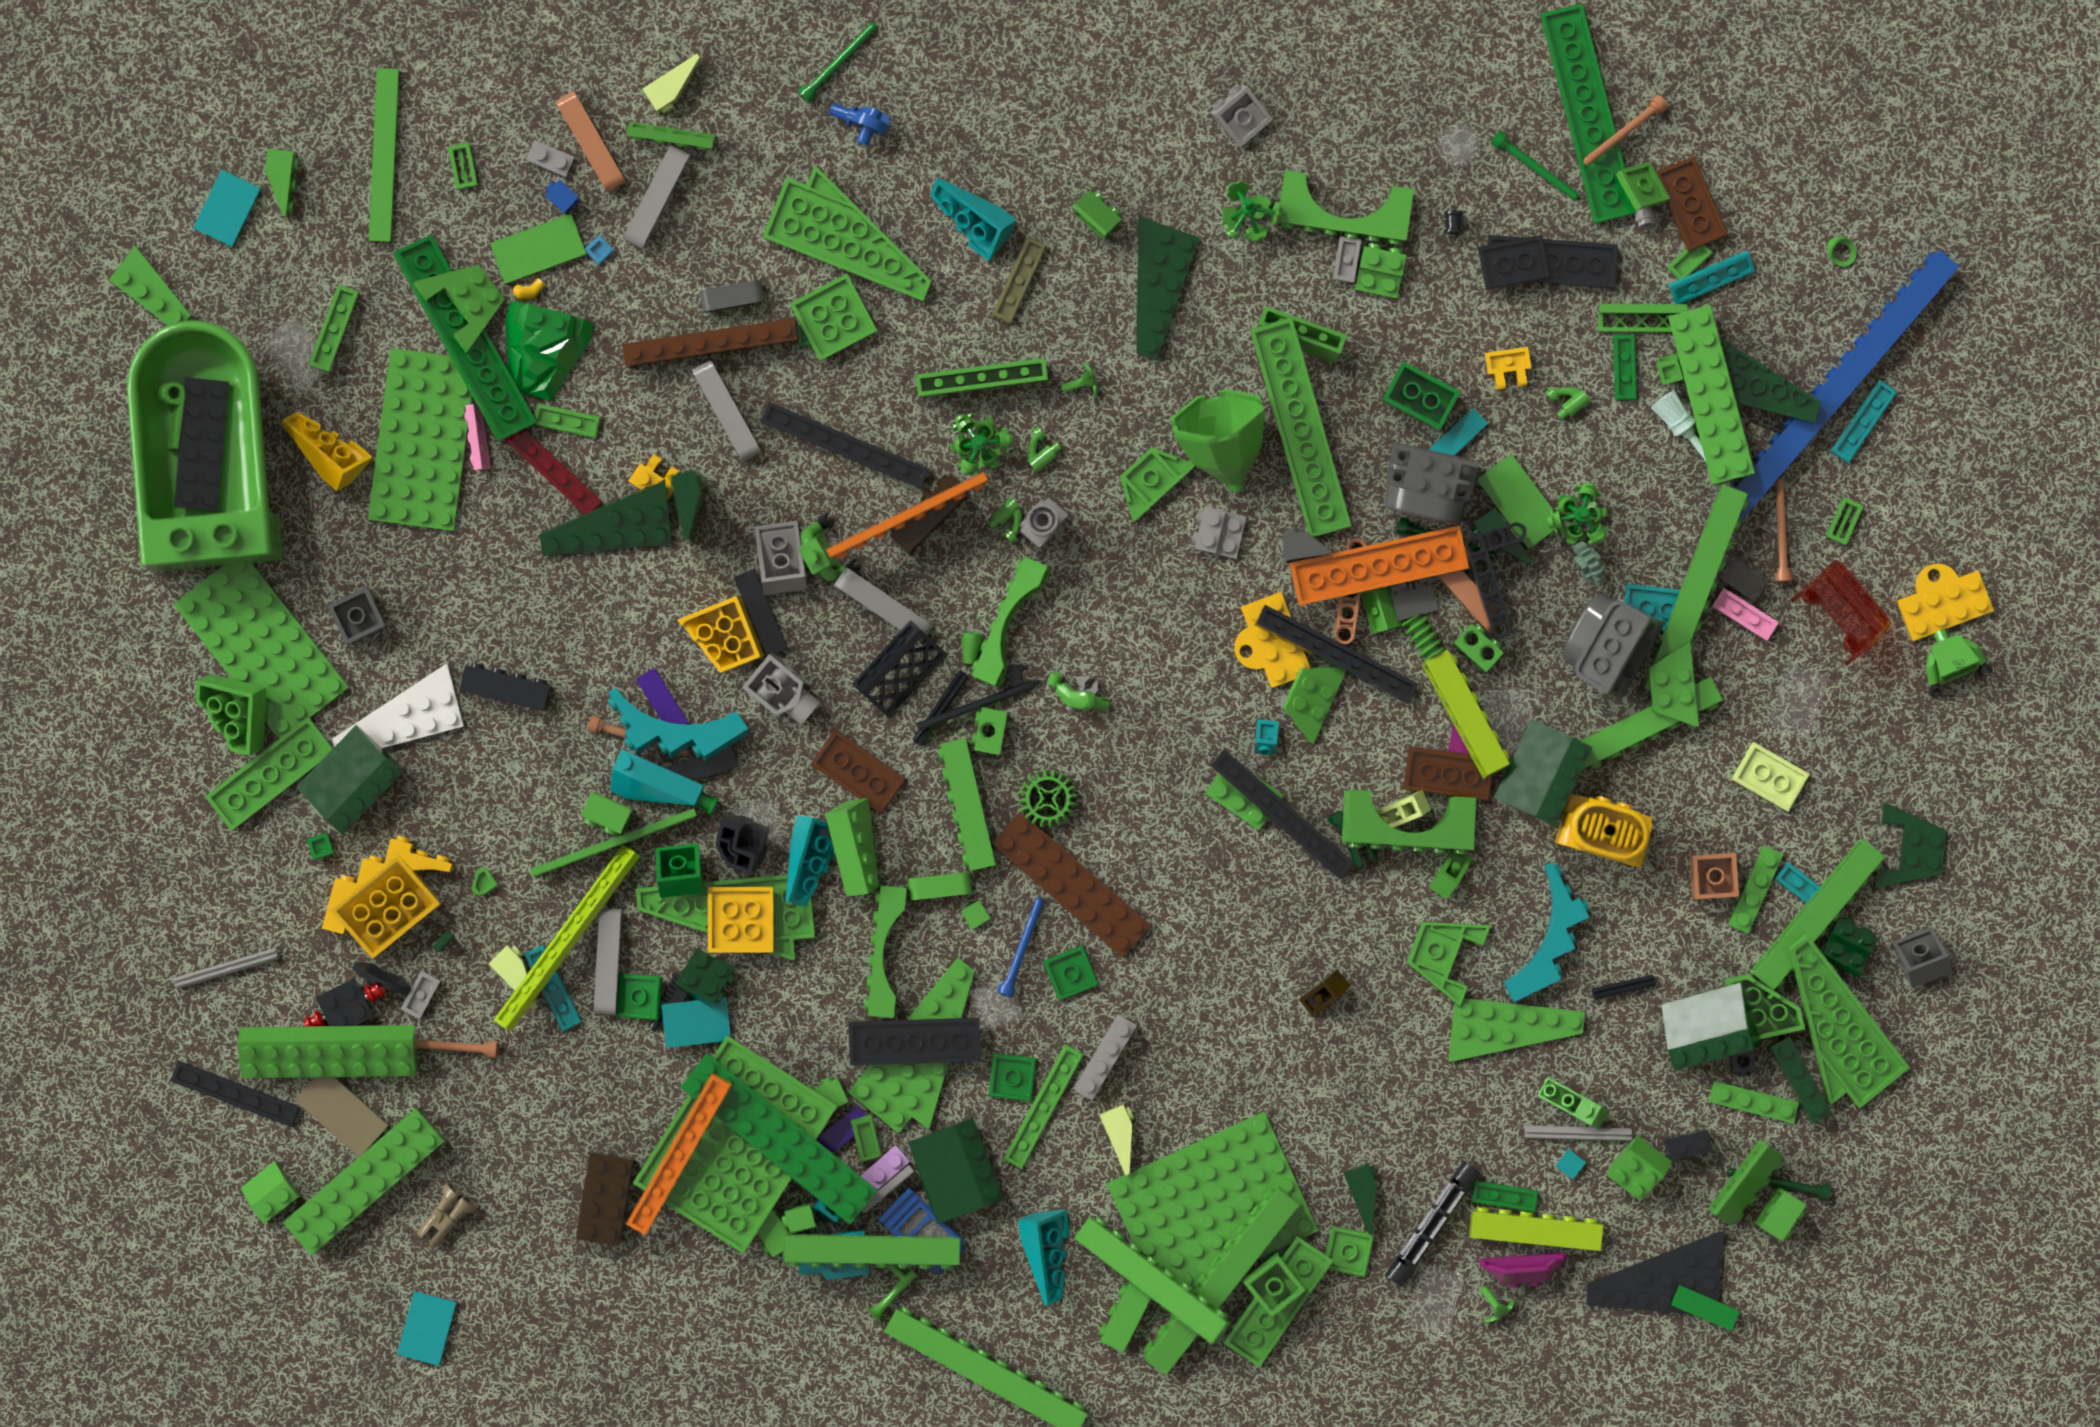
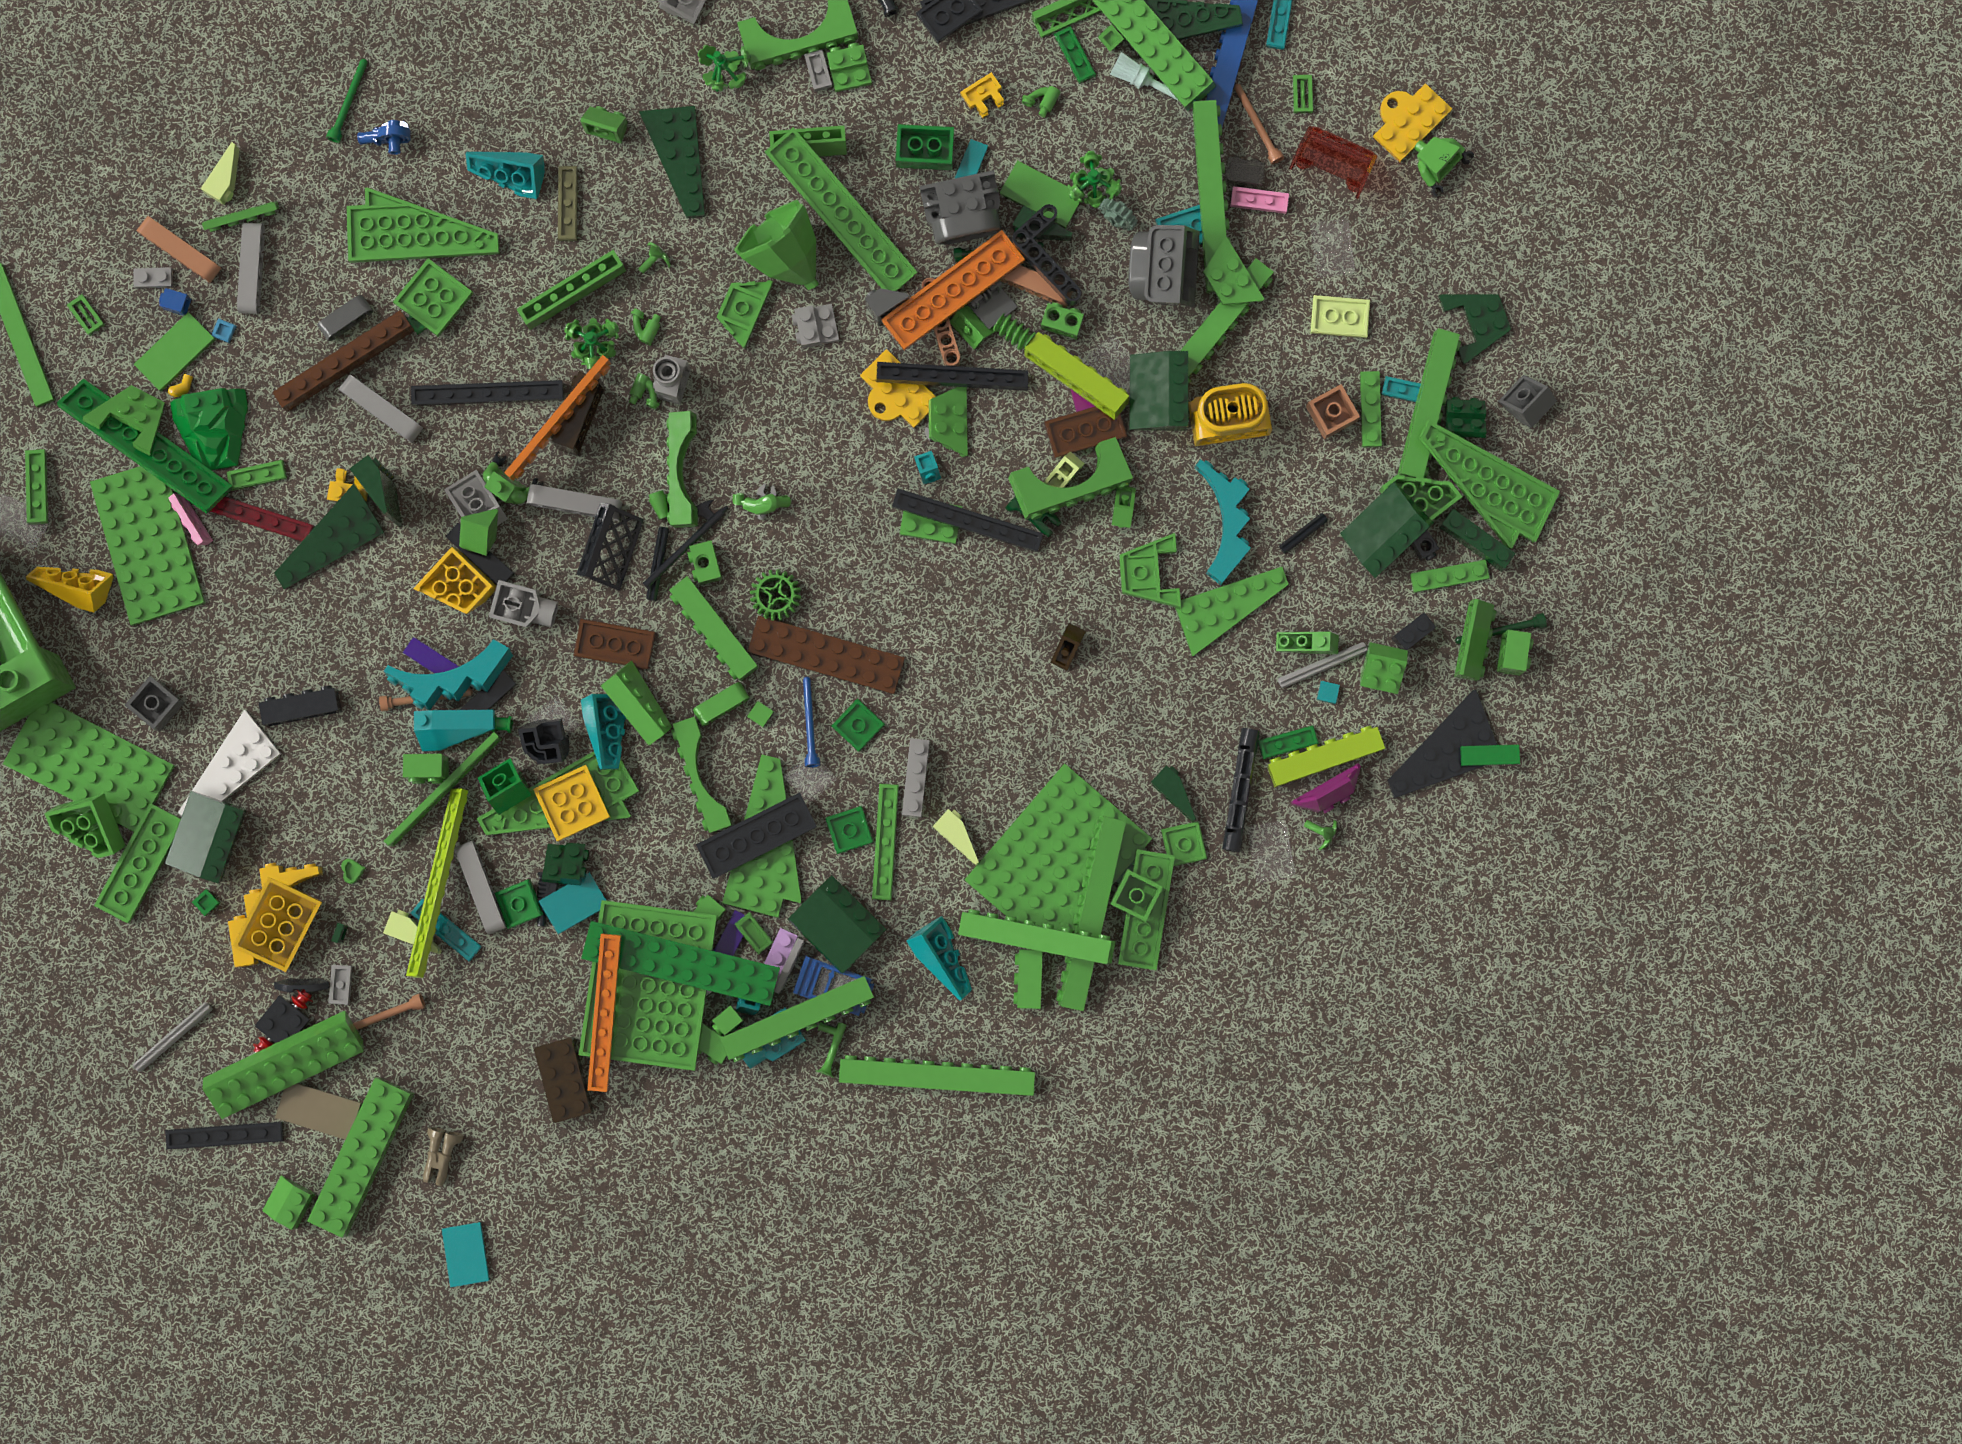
camera: 20 degrees left, 5 degrees down
(771, 592) = (479, 531): none -> bright green slope

